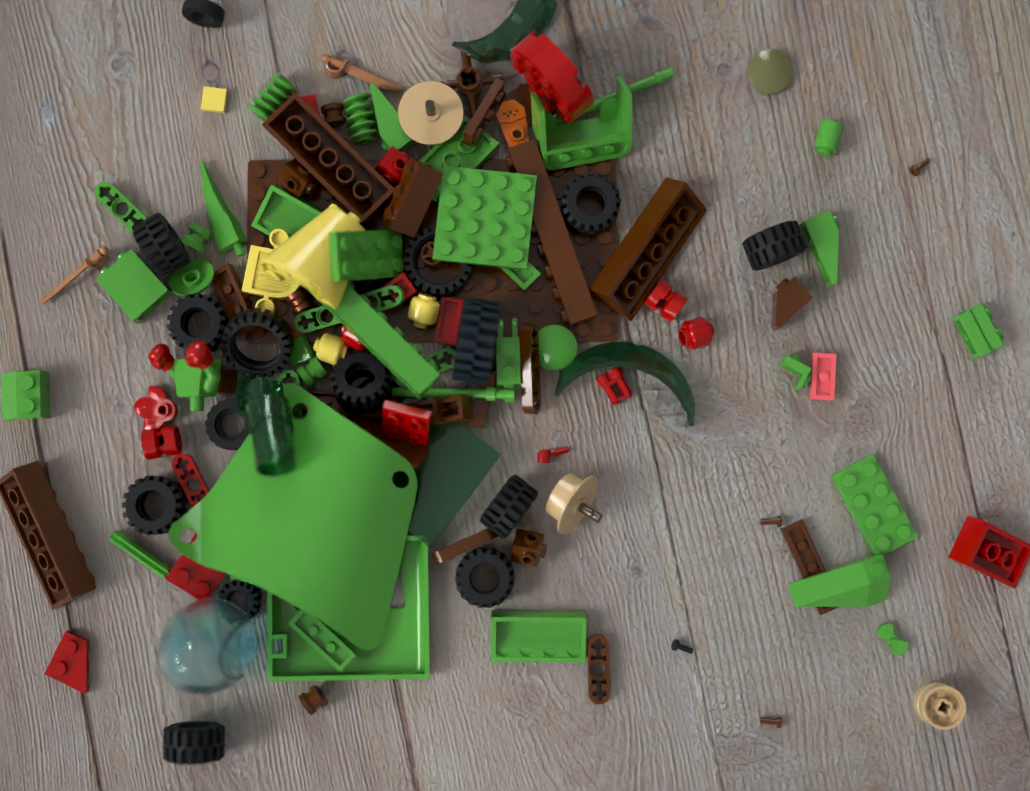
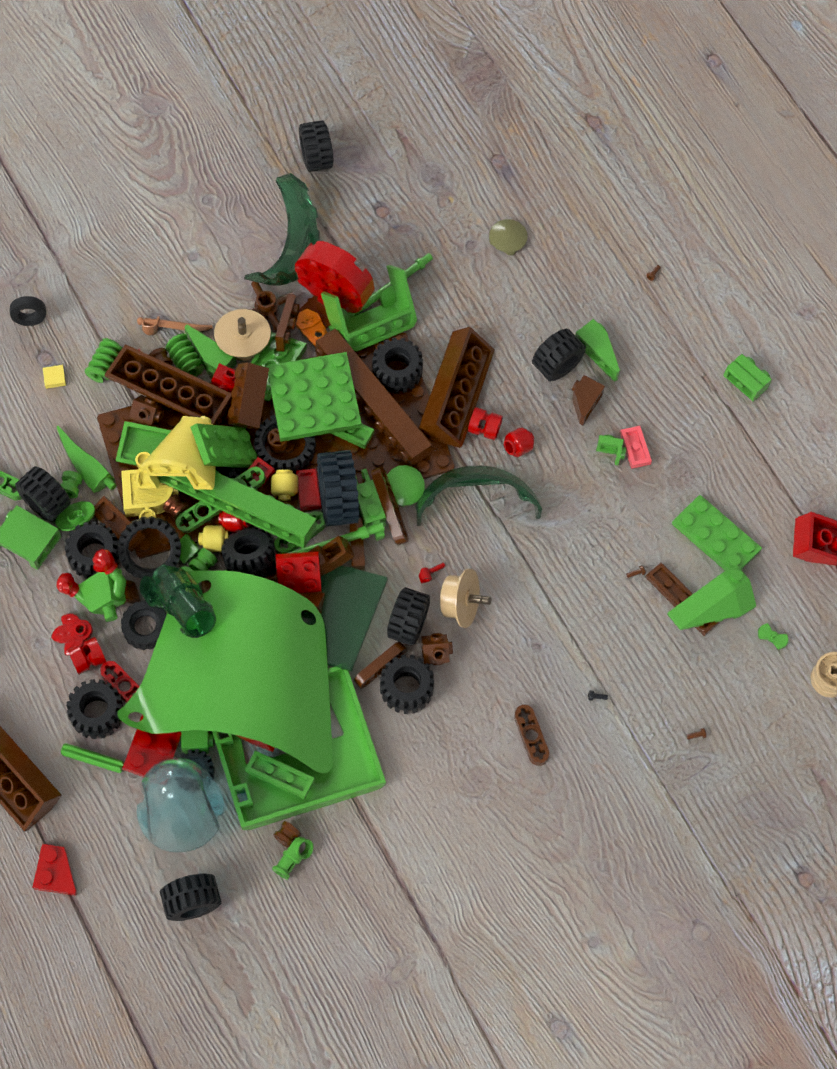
camera: 20 degrees left, 20 degrees down
(311, 725) = (292, 857): none -> bright green connector
(538, 636) = (470, 723): bright green slope -> none
(610, 377) = (459, 497): red piece -> none
(828, 138) = (572, 269): bright green brick -> none

